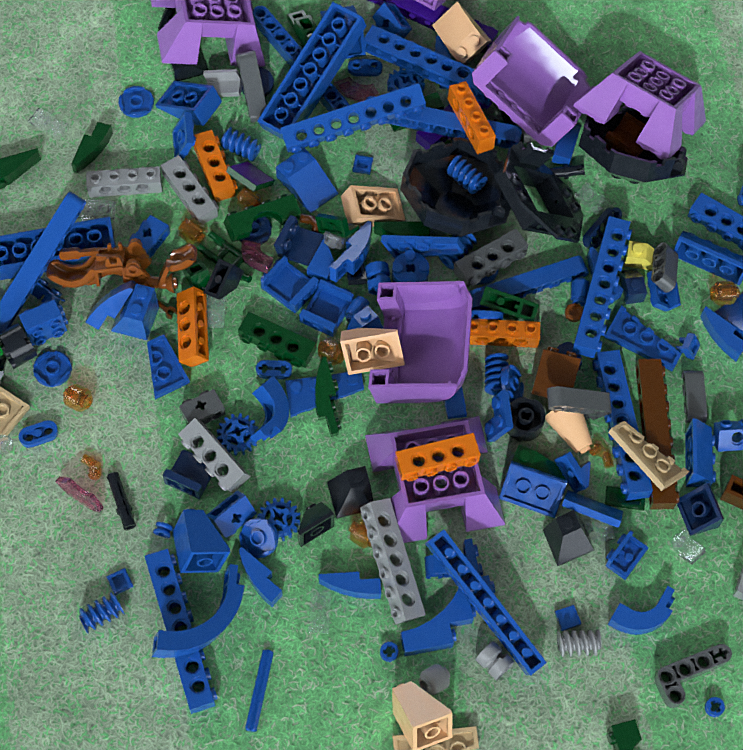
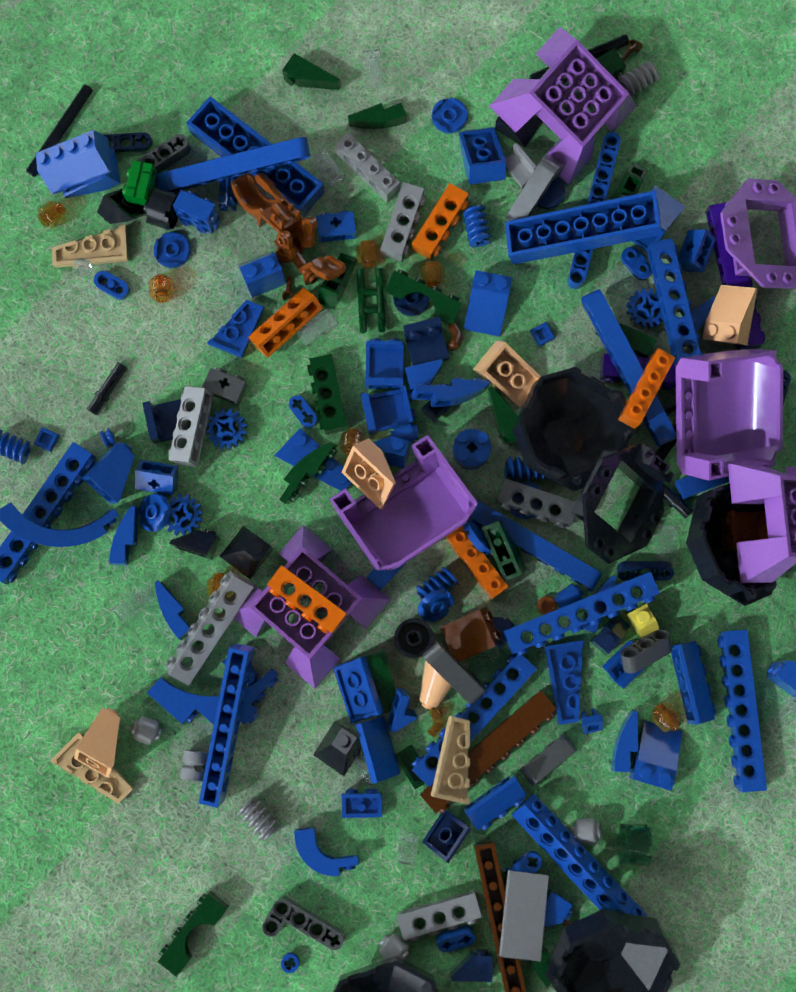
camera: 55 degrees right, 15 degrees up
(75, 491) = (87, 359): clear pink tile -> none
(94, 467) = (115, 350): clear orange arm -> none
(109, 304) = (249, 247): blue slope -> none
(183, 135) = (440, 181): blue plate -> none
(223, 280) = (342, 313): black slope -> none
(250, 176) = (453, 257): tile -> none
(255, 257) = (384, 319): clear pink tile -> none
(259, 691) = (41, 607): blue axle -> none
(276, 409) = (267, 442): blue arch -> none
(334, 242) = (446, 368): clear slope -> none
(335, 225) = (462, 360): dark green panel -> none
(355, 91) = (607, 275): tile -> none
(376, 273) = (448, 426): blue wheel -> none
(384, 648) = (143, 685): blue bush -> none
(412, 93) = (509, 258): blue brick -> none
(424, 245) = (498, 442): blue wing -> none
(465, 176) = (593, 424): blue piece -> none
(502, 419) = (392, 622): blue plate -> none
(567, 618) = (275, 795): blue tile -> none

